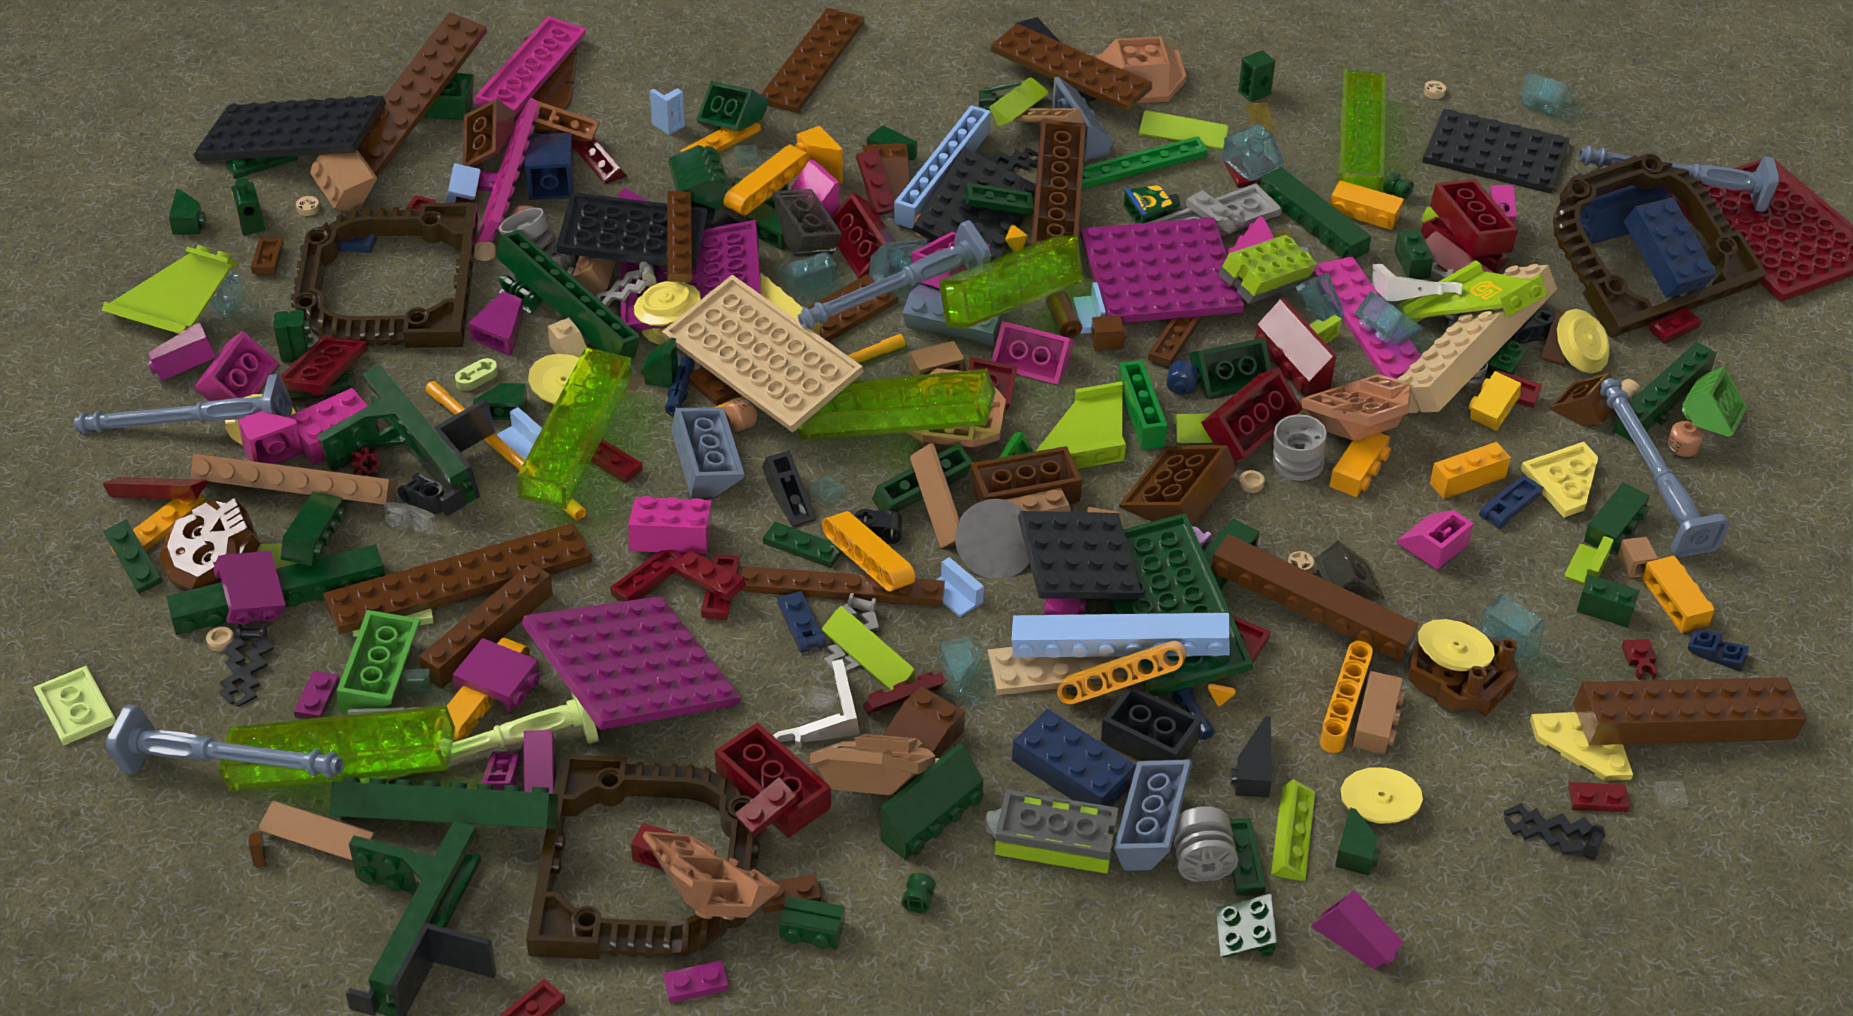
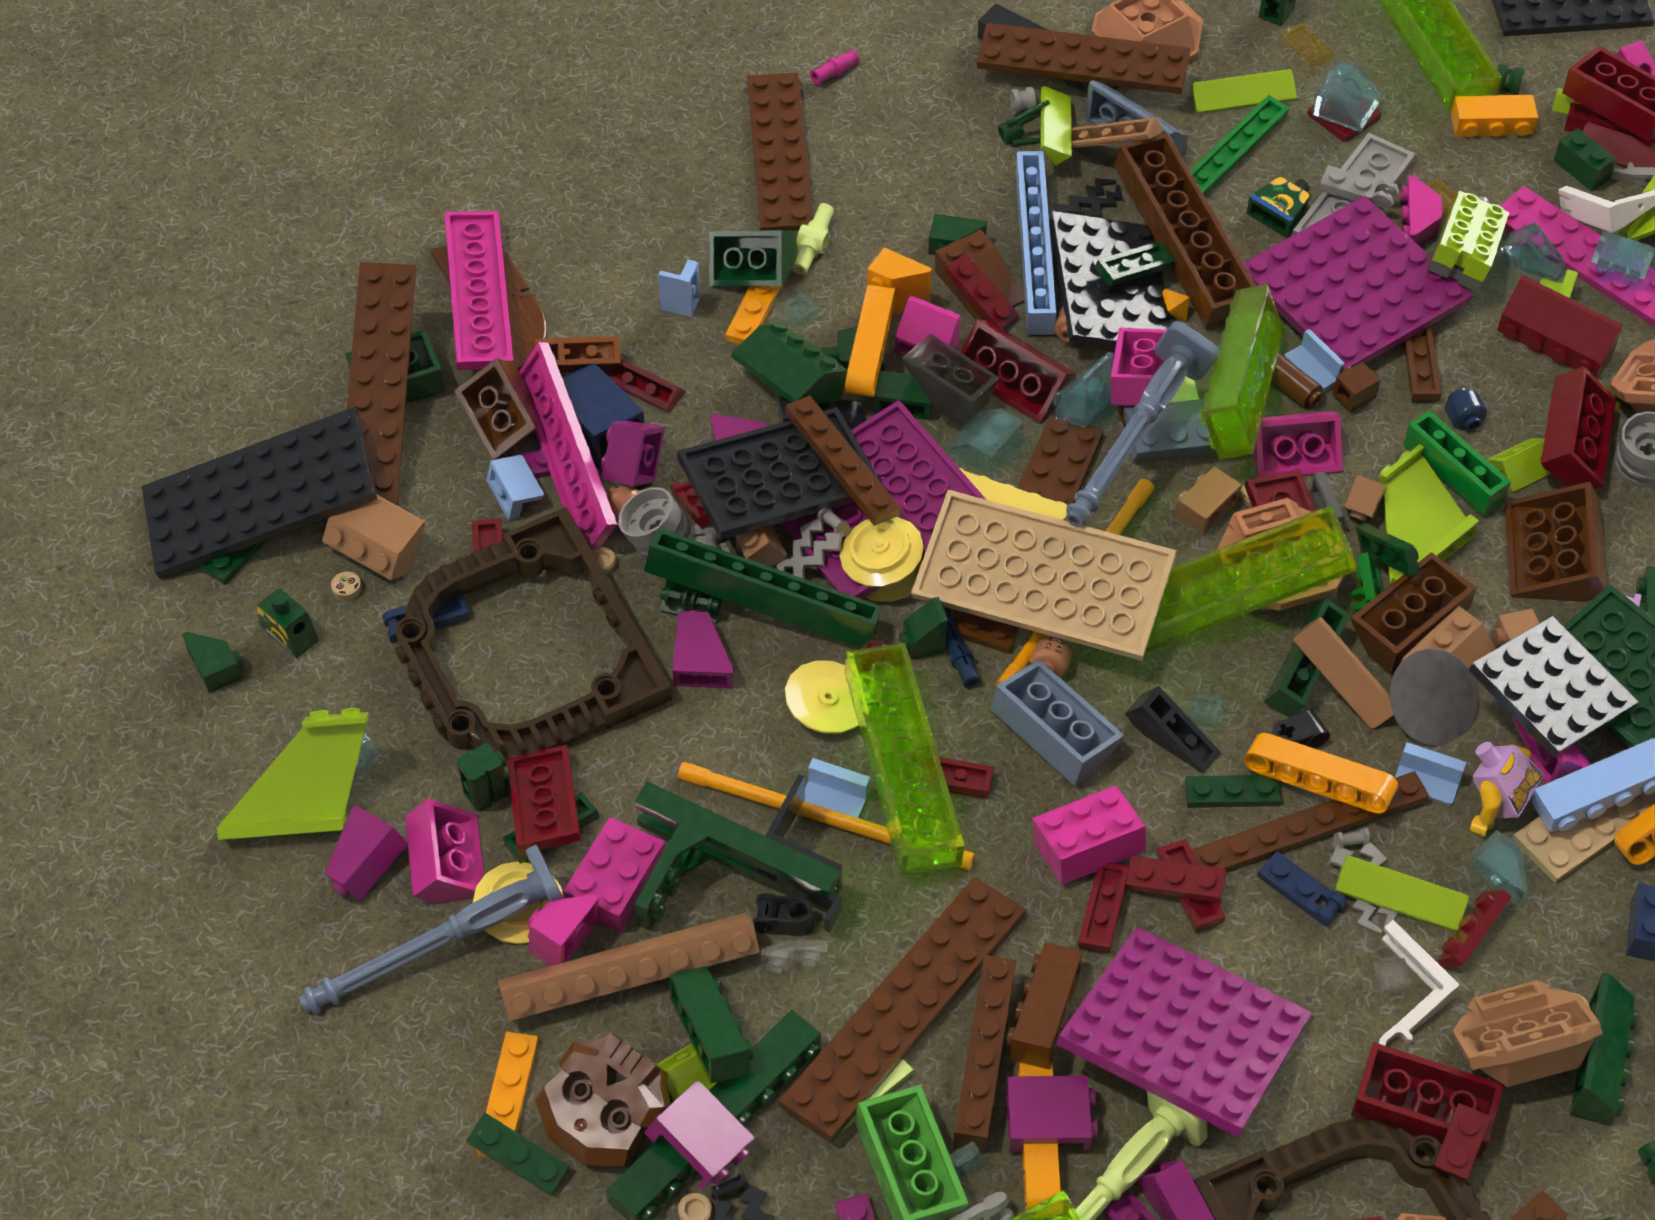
camera: 25 degrees left, 10 degrees up
(155, 488) = (472, 1049): dark red slope -> none
(267, 256) = (354, 676): reddish brown plate -> none
(358, 459) = (689, 905): dark red gear -> none
(476, 374) = (724, 733): yellowish green beam -> none
(504, 399) = (783, 755): dark green slope -> none
(548, 188) = (632, 452): none -> magenta slope
(566, 338) = (796, 644): tan slope -> none
(568, 595) = (1045, 1005): none -> reddish brown brick
(788, 115) = (812, 239): none -> yellowish green pin
(893, 22) = (834, 67): none -> dark pink pin
(929, 720) = (1523, 953): reddish brown slope -> none
(995, 603) = (1504, 782): none -> torso
(1008, 78) = (1022, 100): none -> light grey wheel
(1023, 396) = (1323, 494): none -> dark grey tile
(1037, 434) = (1388, 549): none -> dark green plate
(1053, 401) = (1364, 498): none -> medium nougat brick
(1230, 366) = (1507, 374): dark green slope -> none
(1251, 481) = (1617, 507): tan tile -> none
(1315, 214) = (1454, 147): dark green brick -> none

